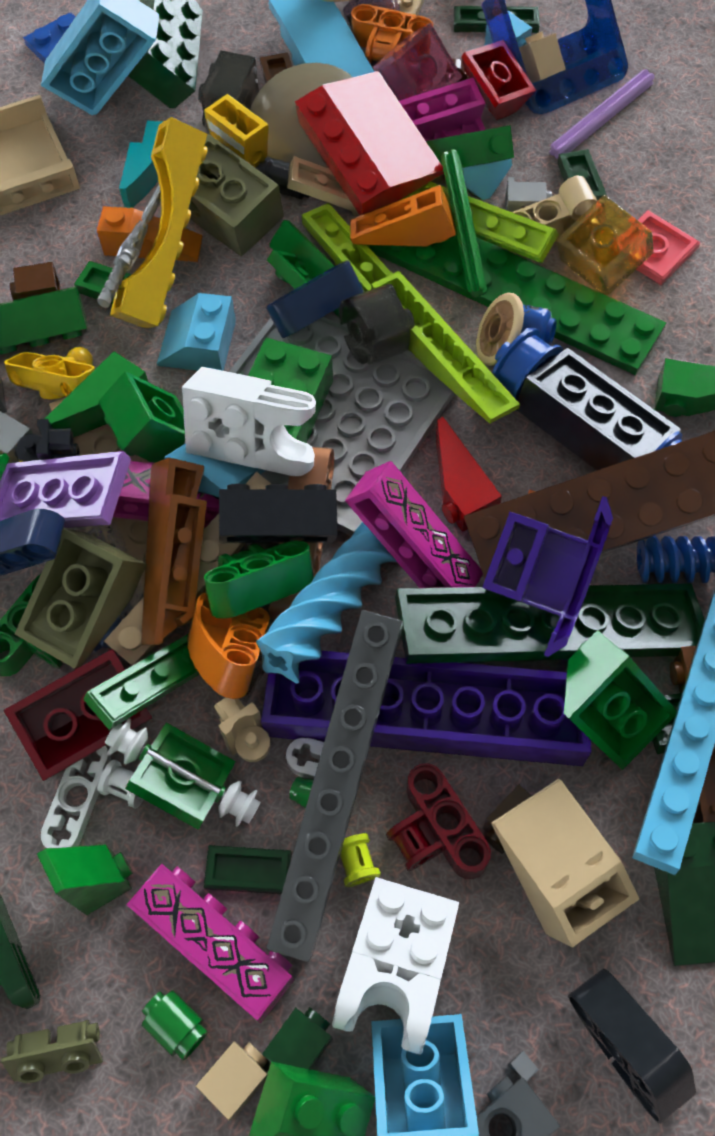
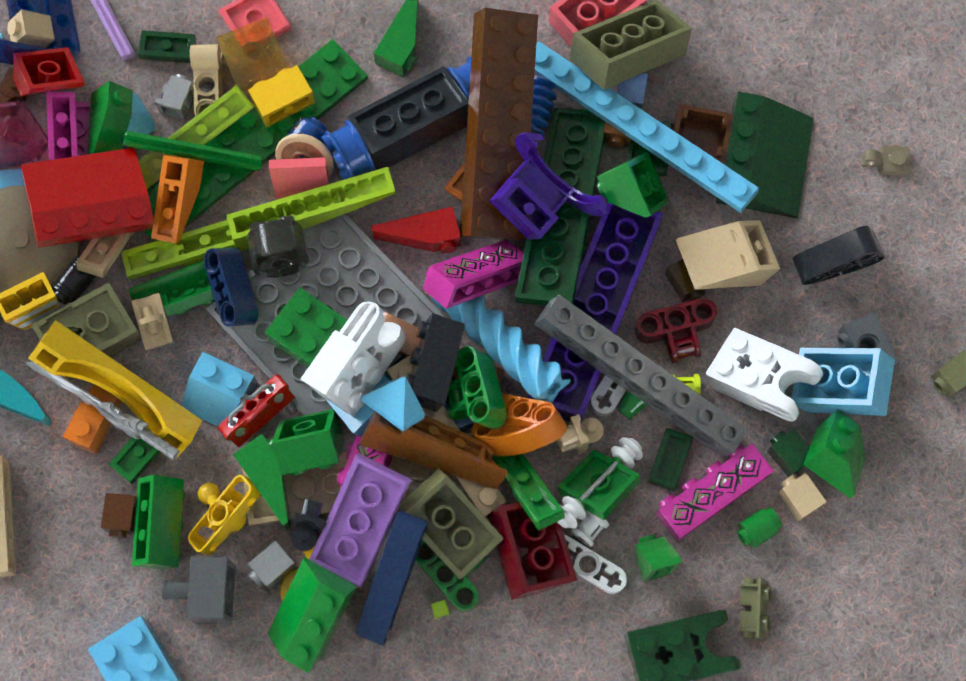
camera: 75 degrees left, 10 degrees up
(164, 361) = (257, 411): none -> red piece
(199, 480) = (396, 403): none -> medium azure slope
(255, 249) = (152, 321): none -> tan hips
(475, 322) = (297, 175): none -> coral tile
(523, 1066) = (833, 324): light grey piece -> none
(566, 283) = (281, 95): none -> yellow brick

